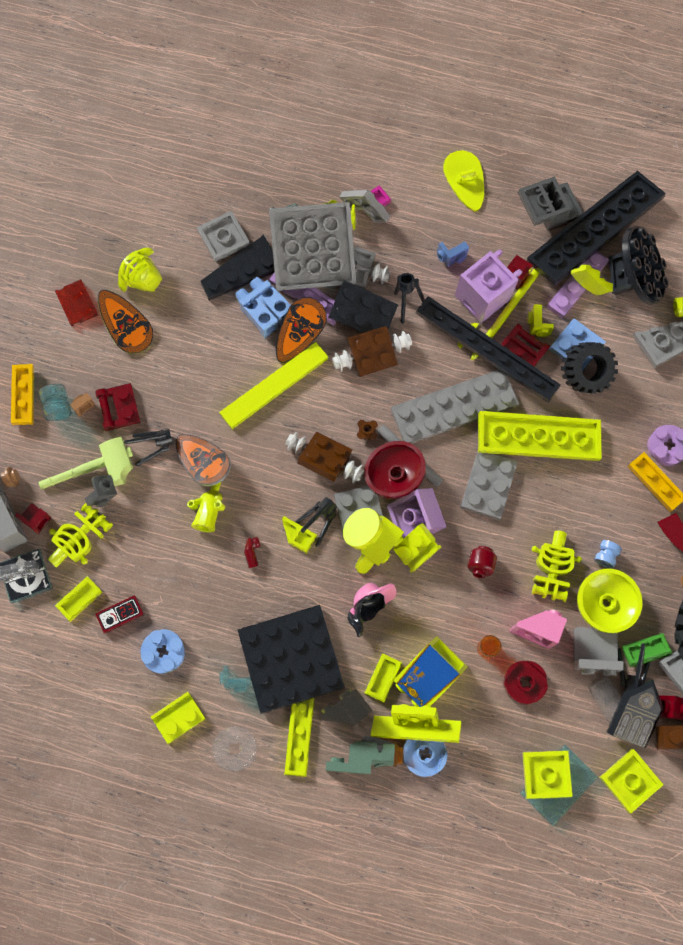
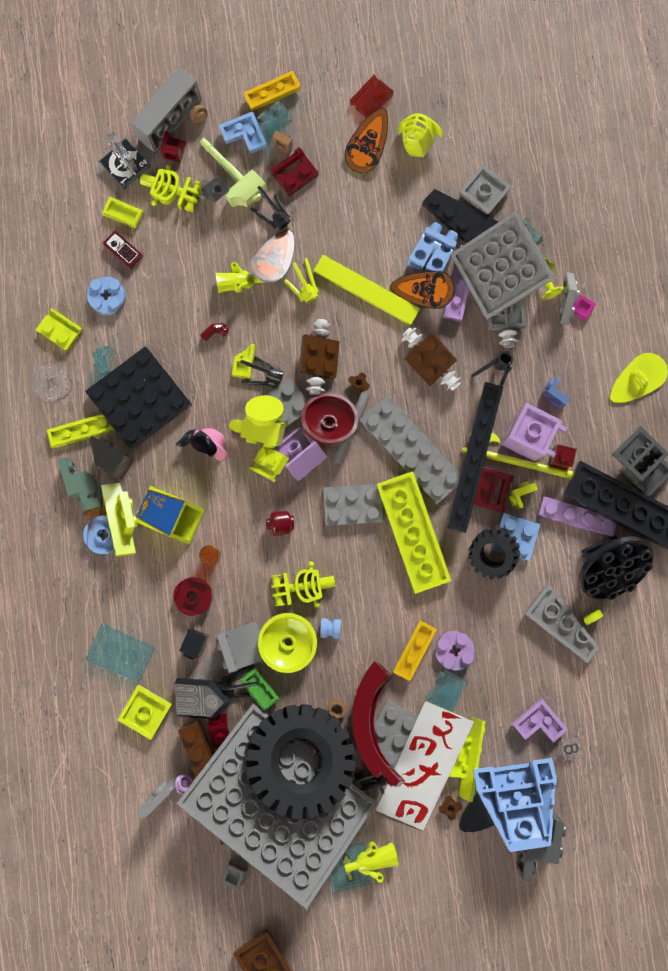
camera: 75 degrees right, 10 degrees up
(49, 434) = (246, 128): none -> light blue plate
(252, 440) = (308, 291): none -> neon yellow plant
(361, 309) = (465, 334): black plate -> none
(383, 678) = (152, 477): neon yellow tile -> none
(541, 628) = (239, 591): bright pink slope -> none
(547, 774) = (121, 639): neon yellow plate -> none
(576, 700) = (193, 644): none -> black brick
(591, 281) = (581, 525): neon yellow slope -> none

